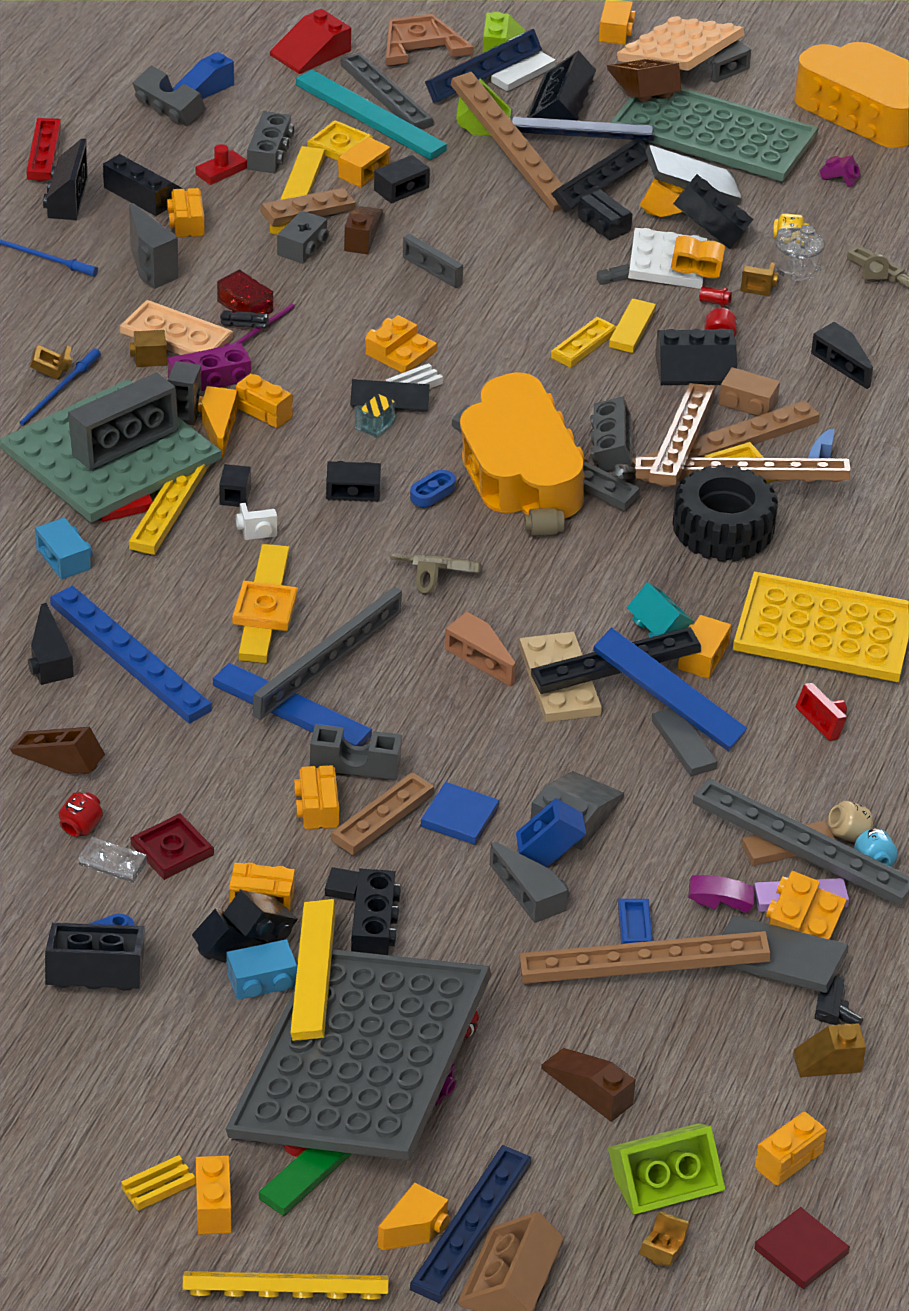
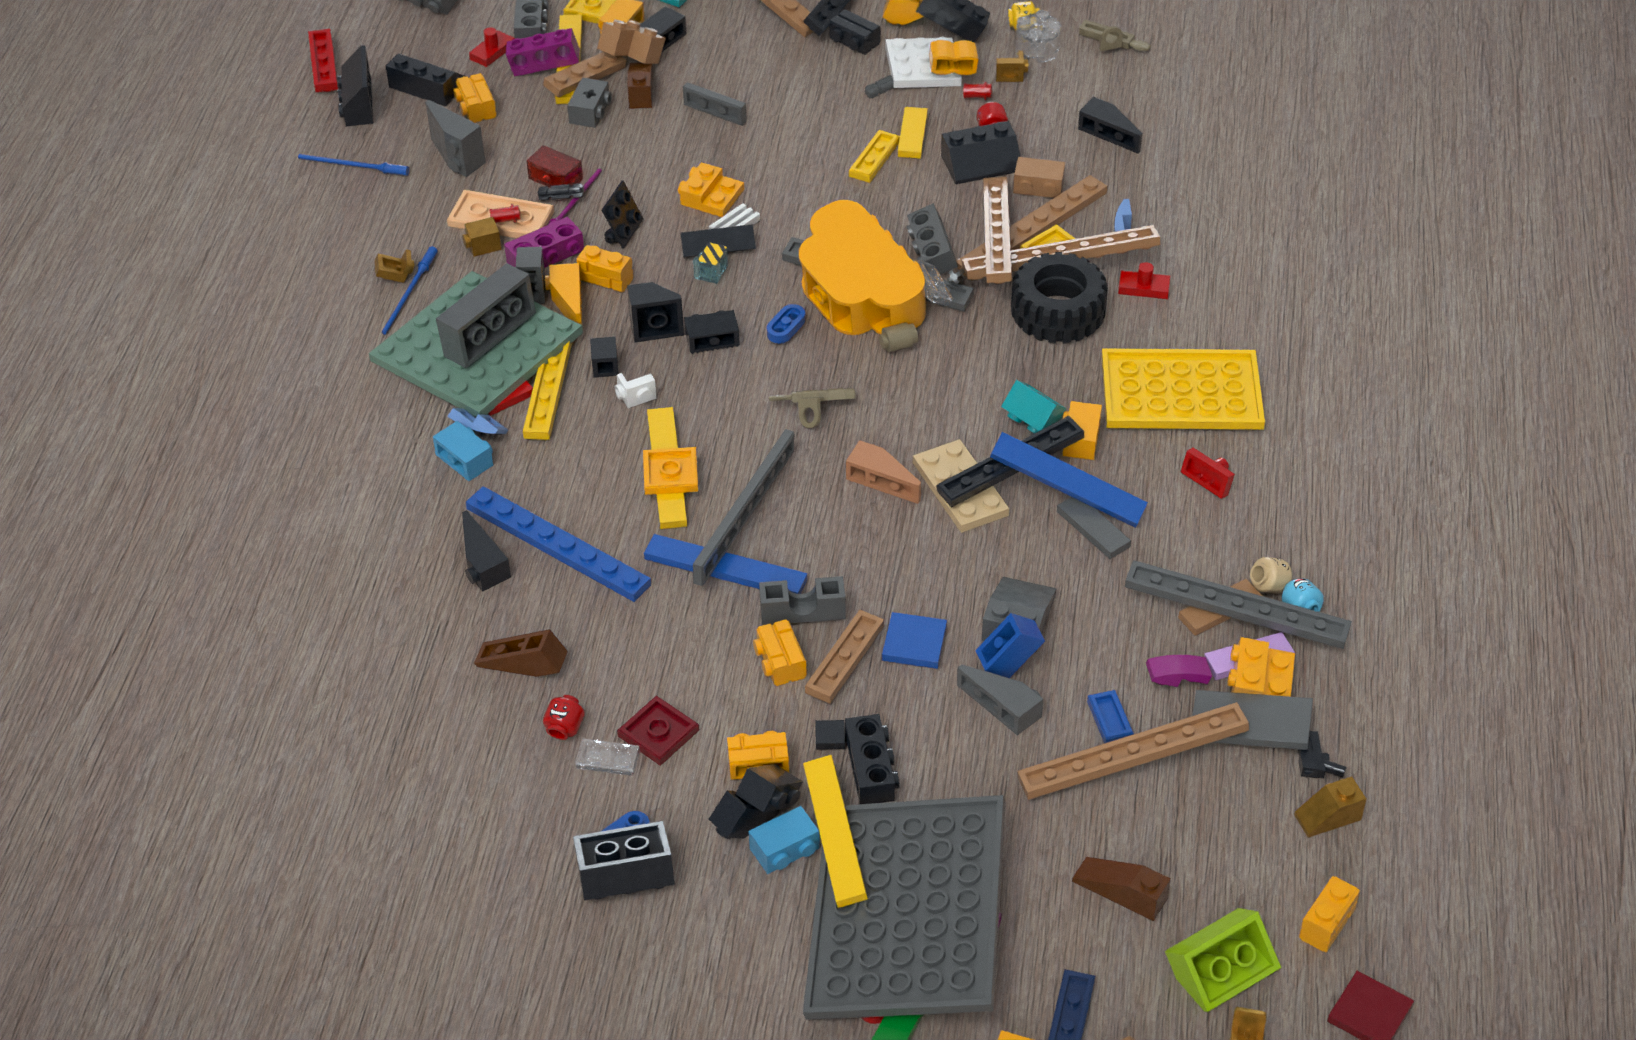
camera: 10 degrees left, 5 degrees up
(87, 524) = (481, 423): none -> medium blue slope
(179, 330) = (506, 214): none -> red pin
(269, 178) = (542, 52): none -> magenta brick
(297, 352) = (621, 216): none -> black hinge
(298, 451) = (654, 312): none -> black slope
(364, 182) = (631, 40): none -> medium nougat brick
(596, 474) = (934, 285): none -> clear plate
(824, 516) = (1144, 283): none -> red tile

